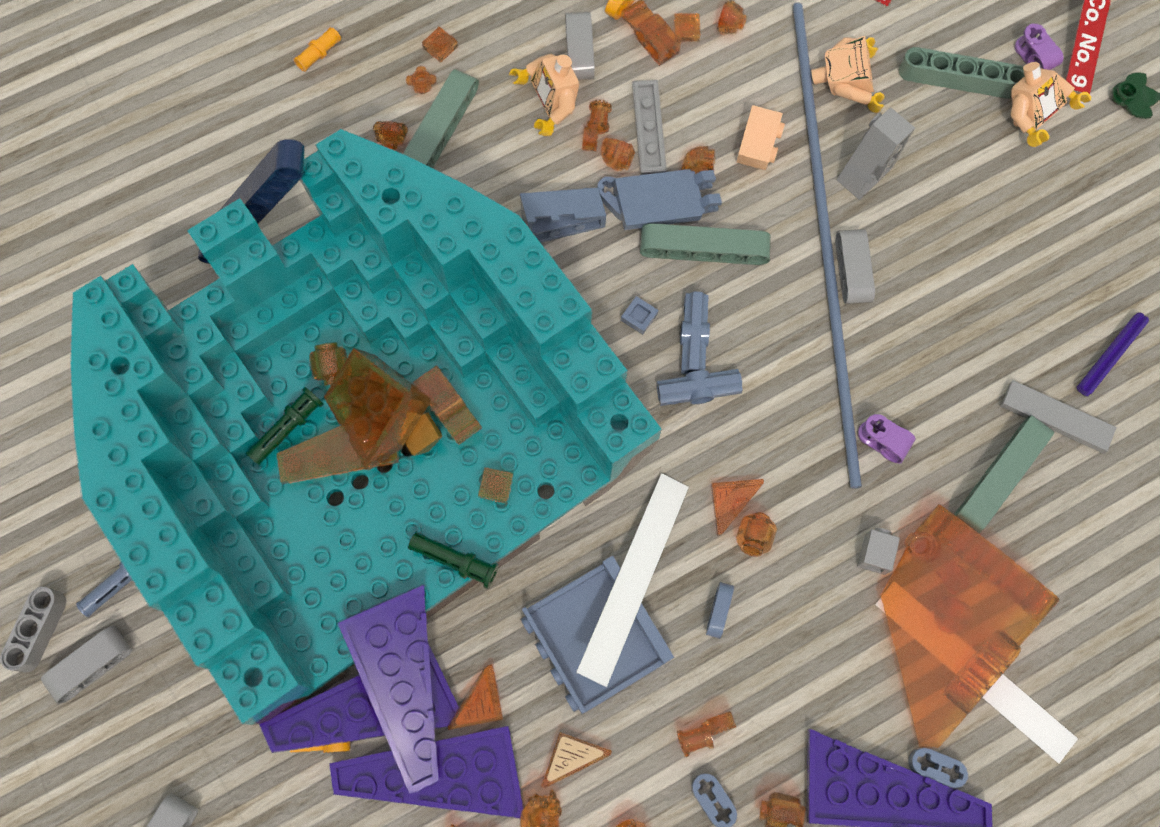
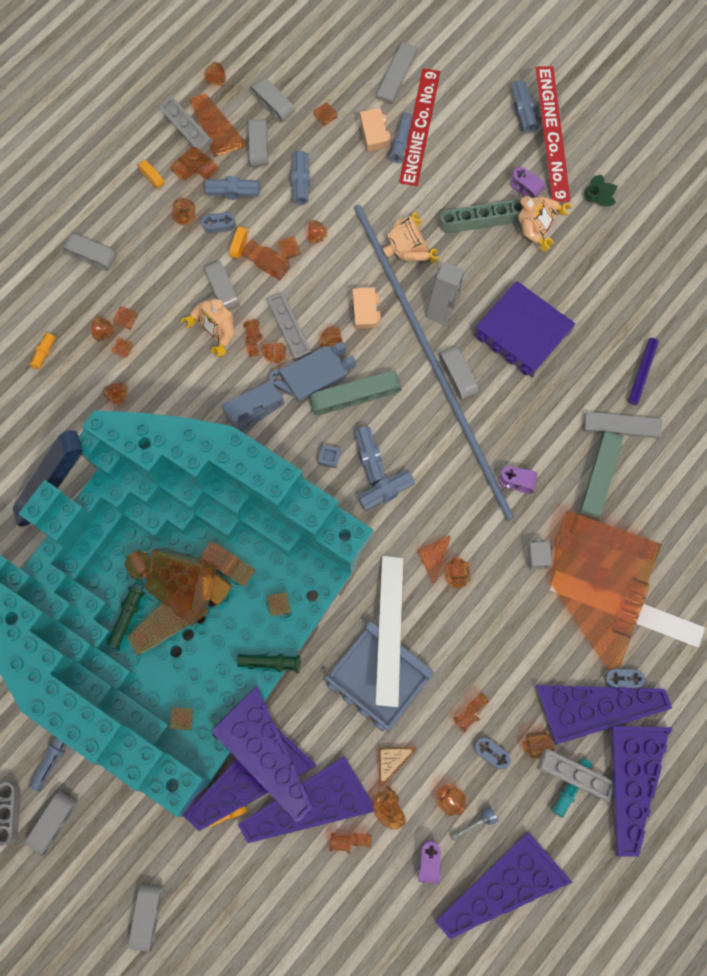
camera: 15 degrees left, 0 degrees up
(306, 591) = (181, 719): none -> clear orange plate
(403, 46) = (101, 329): none -> clear orange cone
(442, 118) = (146, 373): sand green beam -> none
(480, 704) = (320, 749): clear orange tile -> none
(719, 610) = (452, 630): sand blue beam -> none
(966, 239) = (523, 329): none -> dark purple panel

